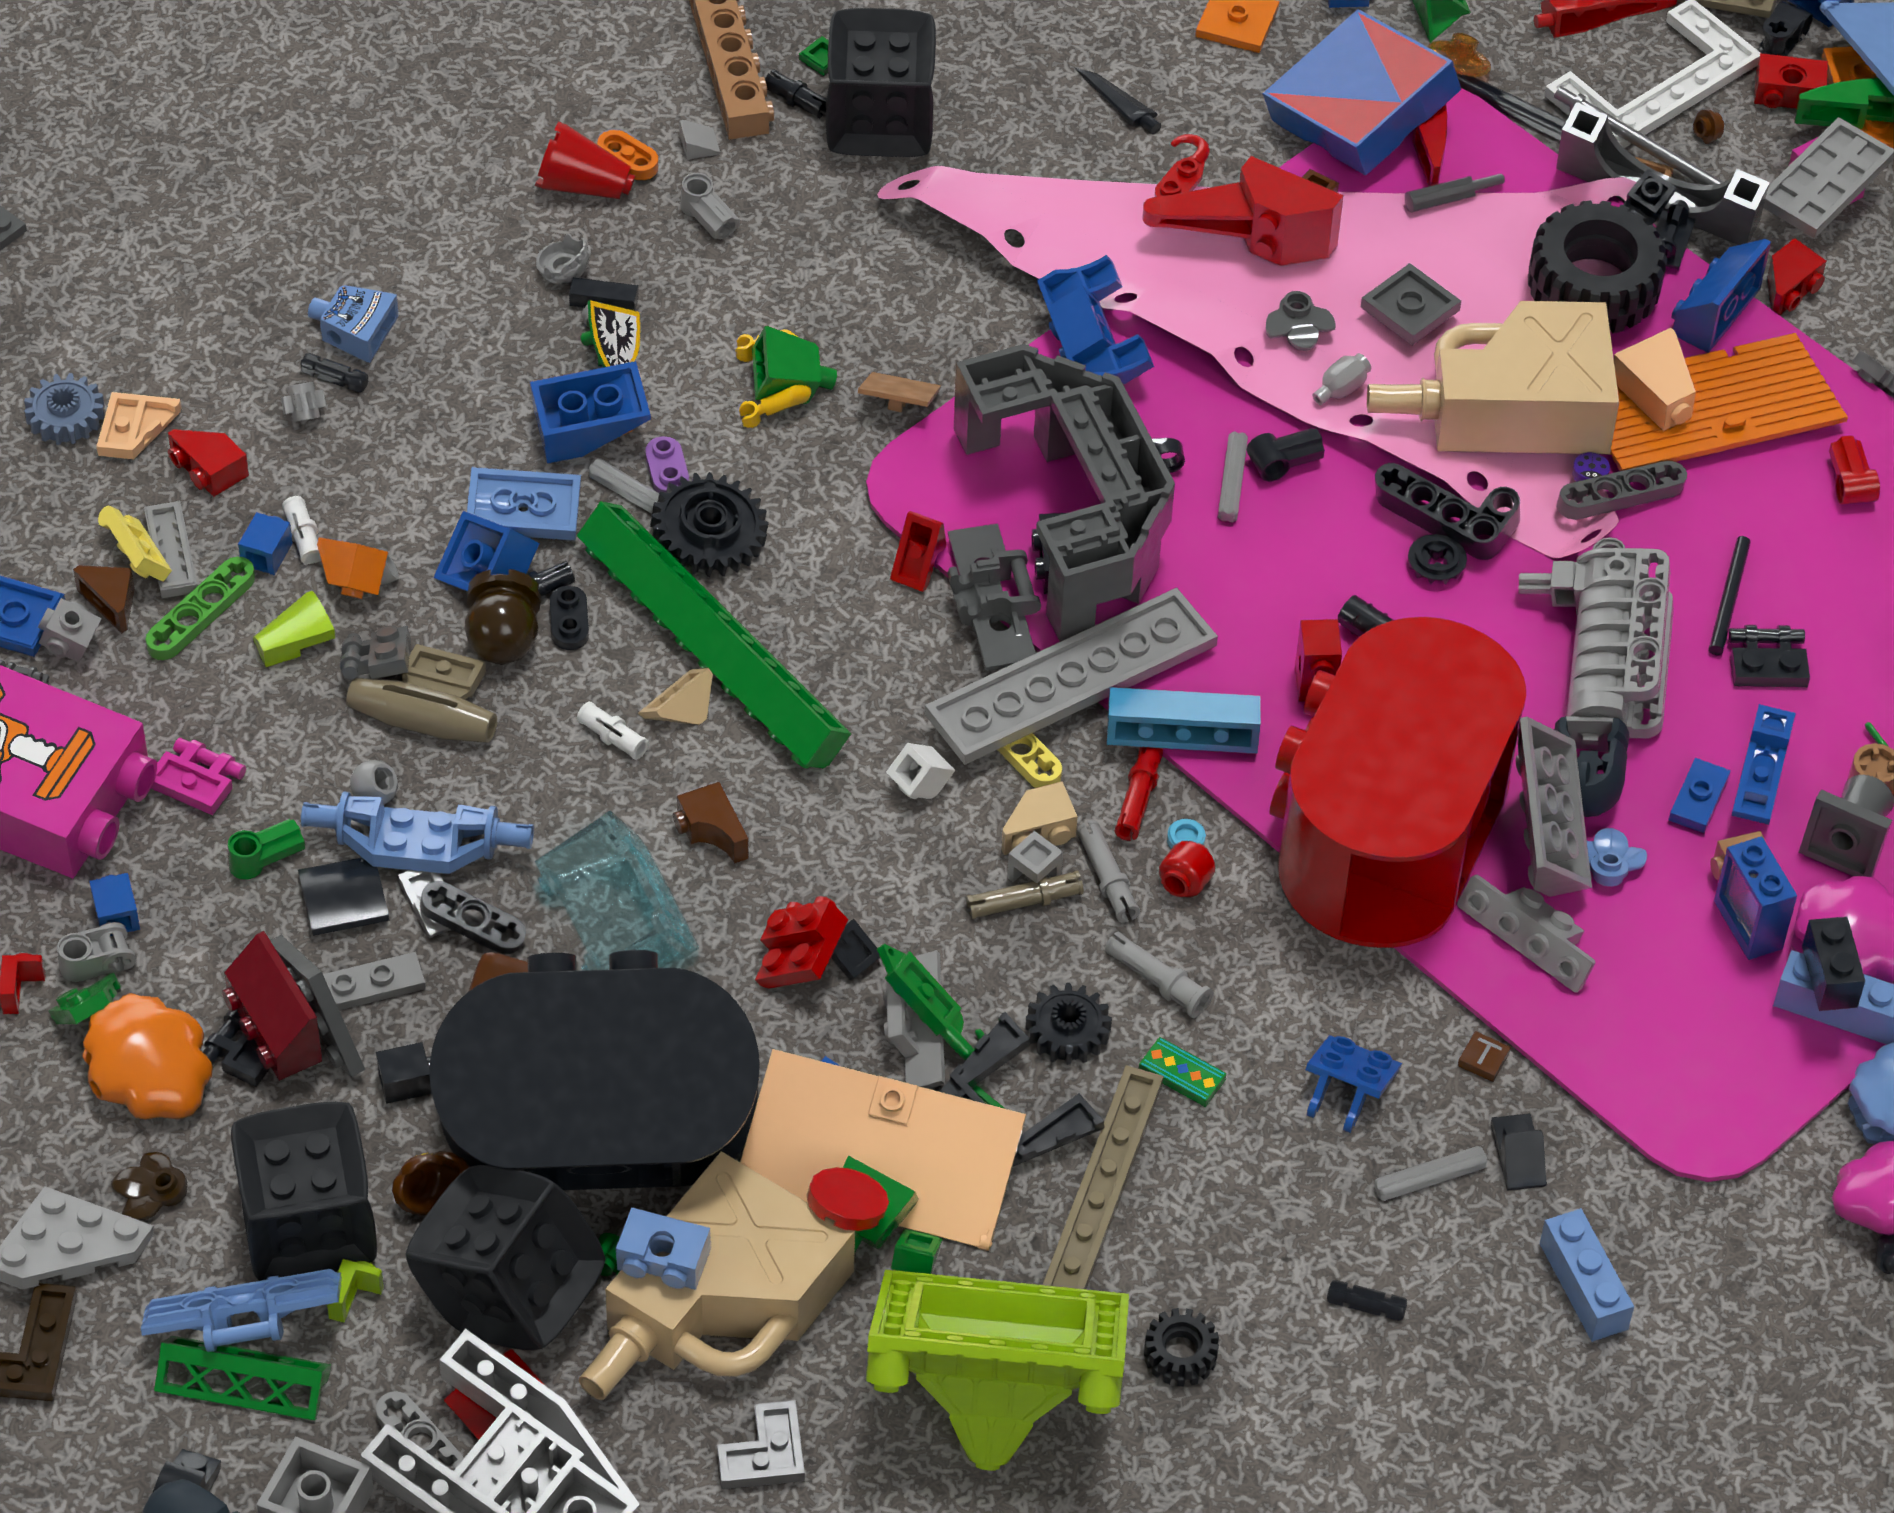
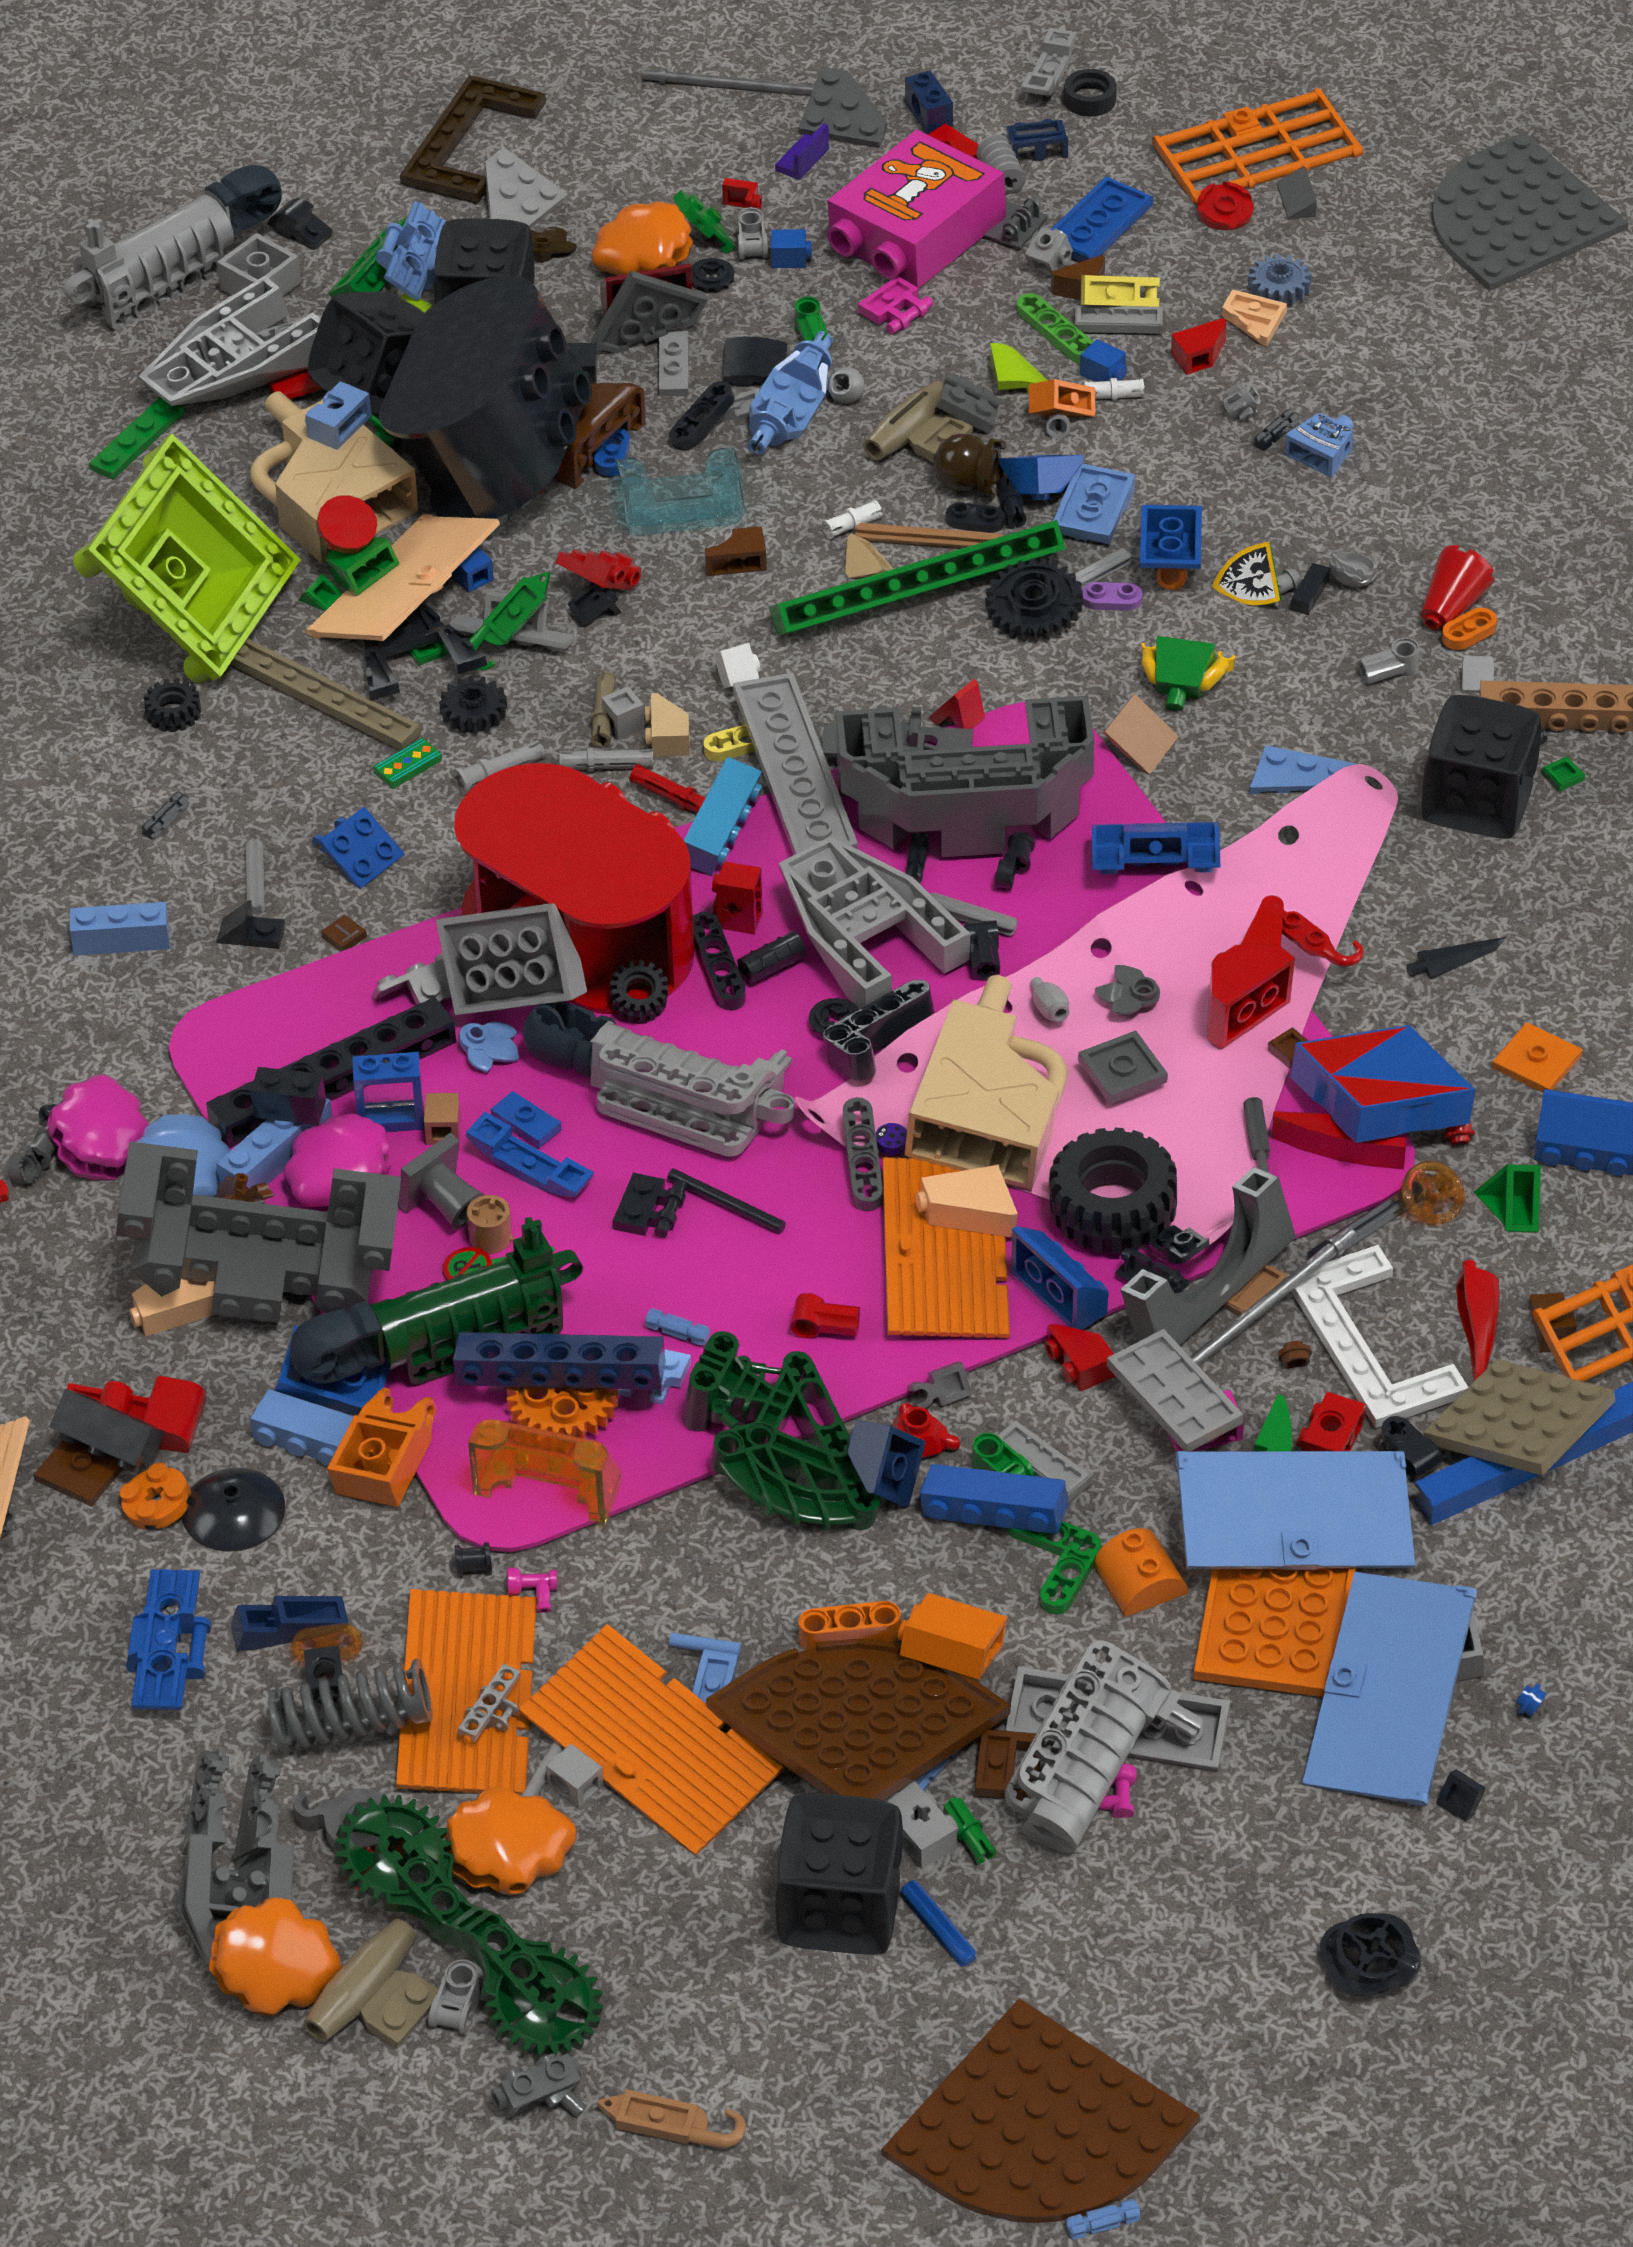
camera: 110 degrees right, 5 degrees down
(172, 971) = (712, 266): none -> black gear
(618, 651) = (921, 535): none -> medium nougat axle
(898, 260) = (1292, 770): none -> medium blue wing
(1176, 539) = (917, 856): none -> black axle
(1288, 557) = (854, 896): none -> light grey wedge
(1742, 985) = (418, 1029): none -> black brick

